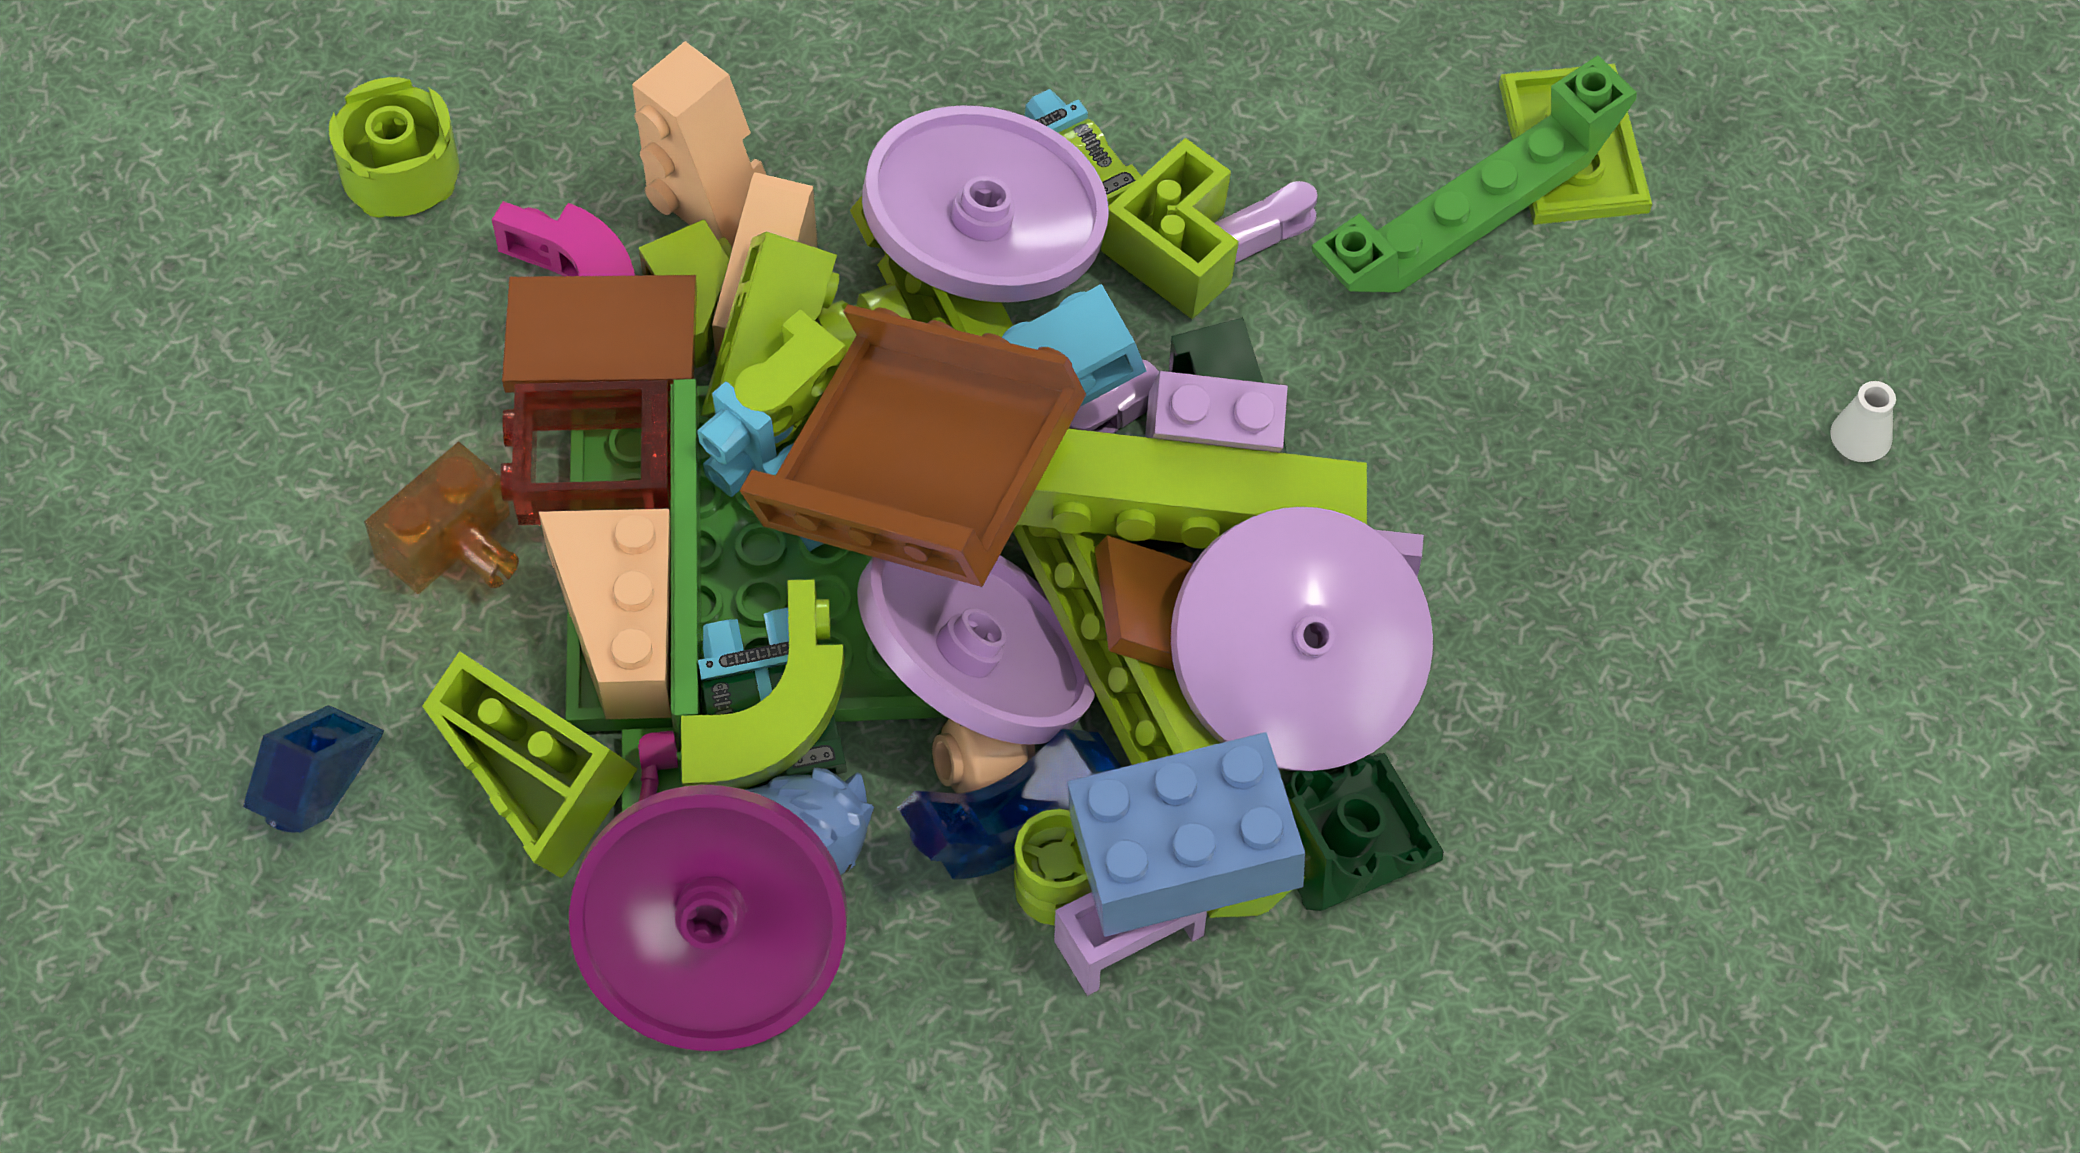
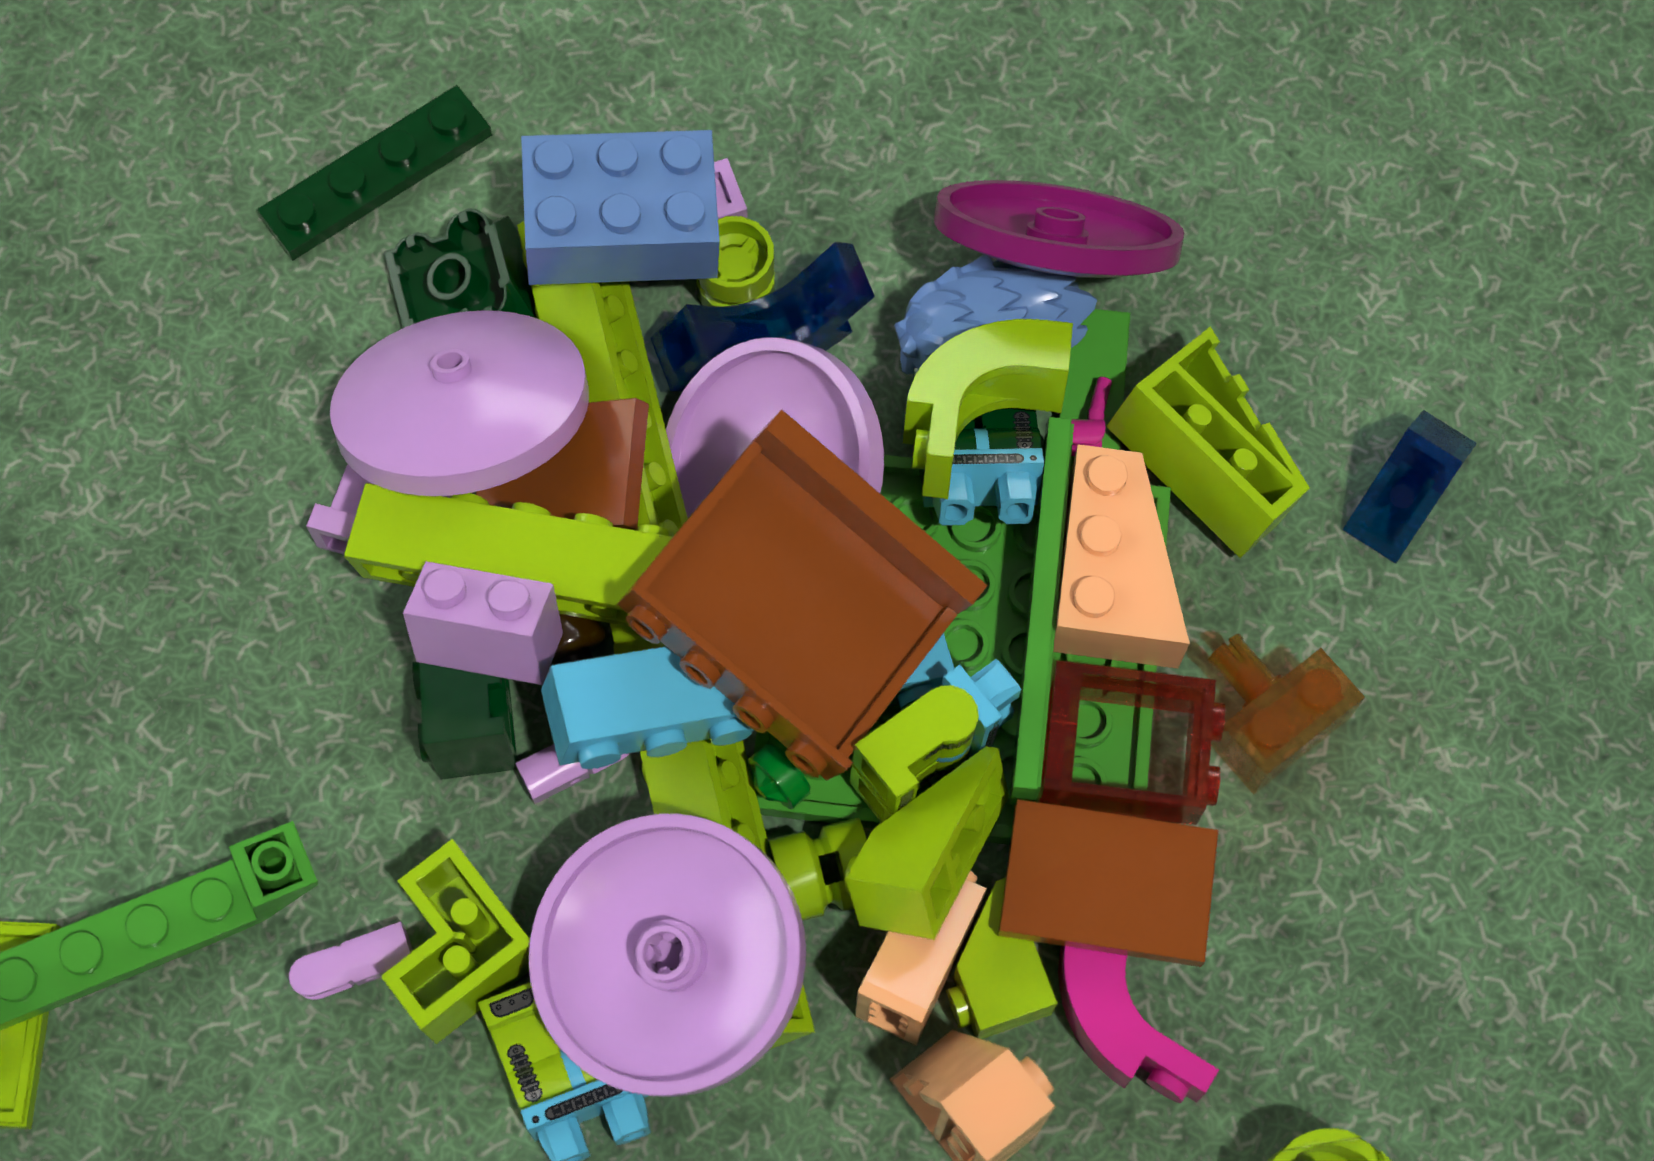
camera: 170 degrees left, 10 degrees up
(1481, 947) = (374, 172): none -> dark green plate

